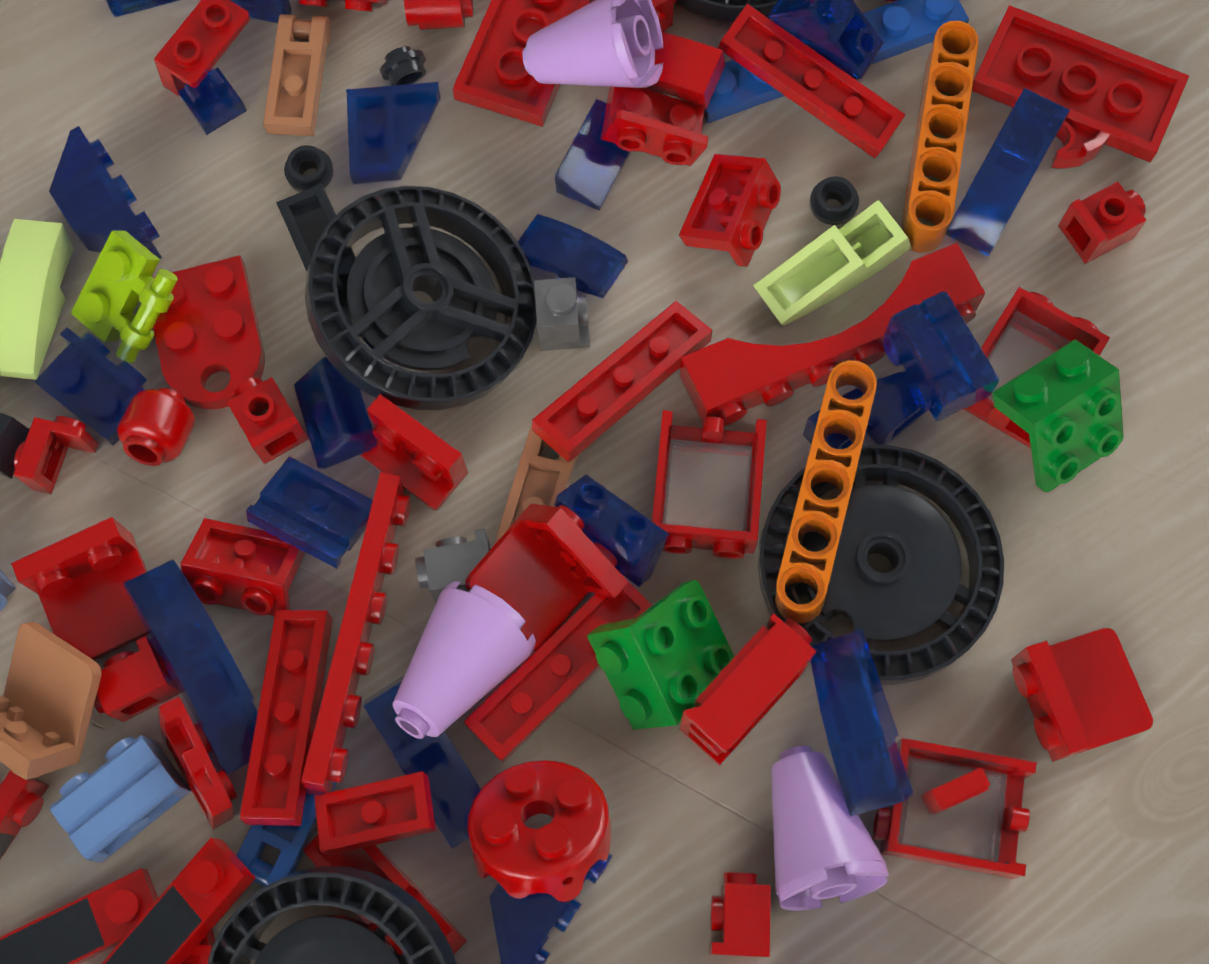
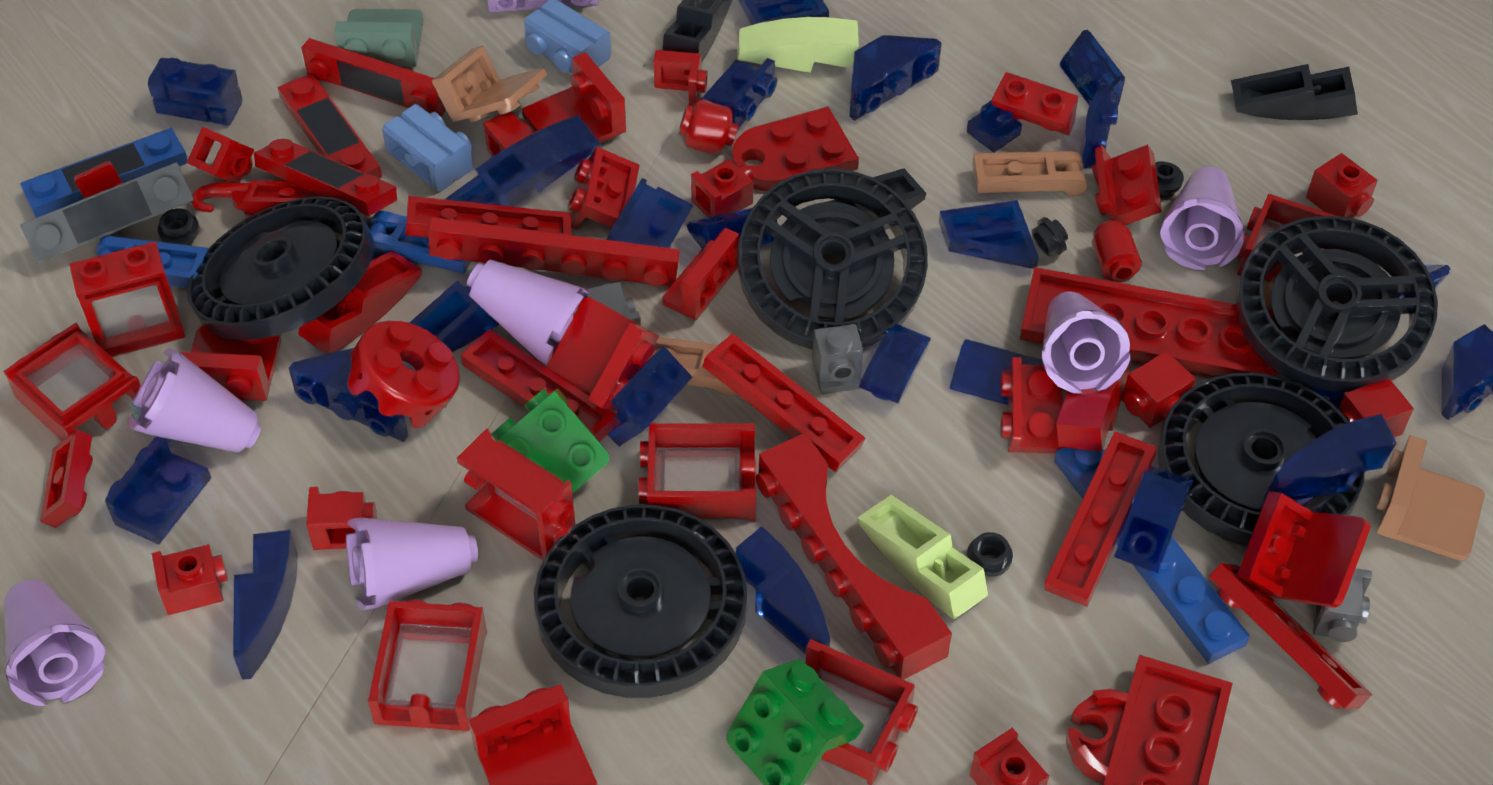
camera: 80 degrees right, 20 degrees down
(114, 289) = (808, 91): lime plate -> none
(190, 752) = (453, 173): red wing -> none
(306, 158) = (944, 190): black plate -> none
(374, 813) = (414, 274): red plate -> none
(732, 206) = (963, 477): red bracket -> none
(830, 466) = (688, 527): orange beam -> none
(858, 724) = (488, 566): clear blue slope -> none
(939, 357) = (824, 606): clear blue brick -> none
(949, 118) = (1053, 641): orange beam -> none
(956, 791) = (439, 652): red tile -> none
(1007, 171) = (1042, 681): clear blue slope -> none

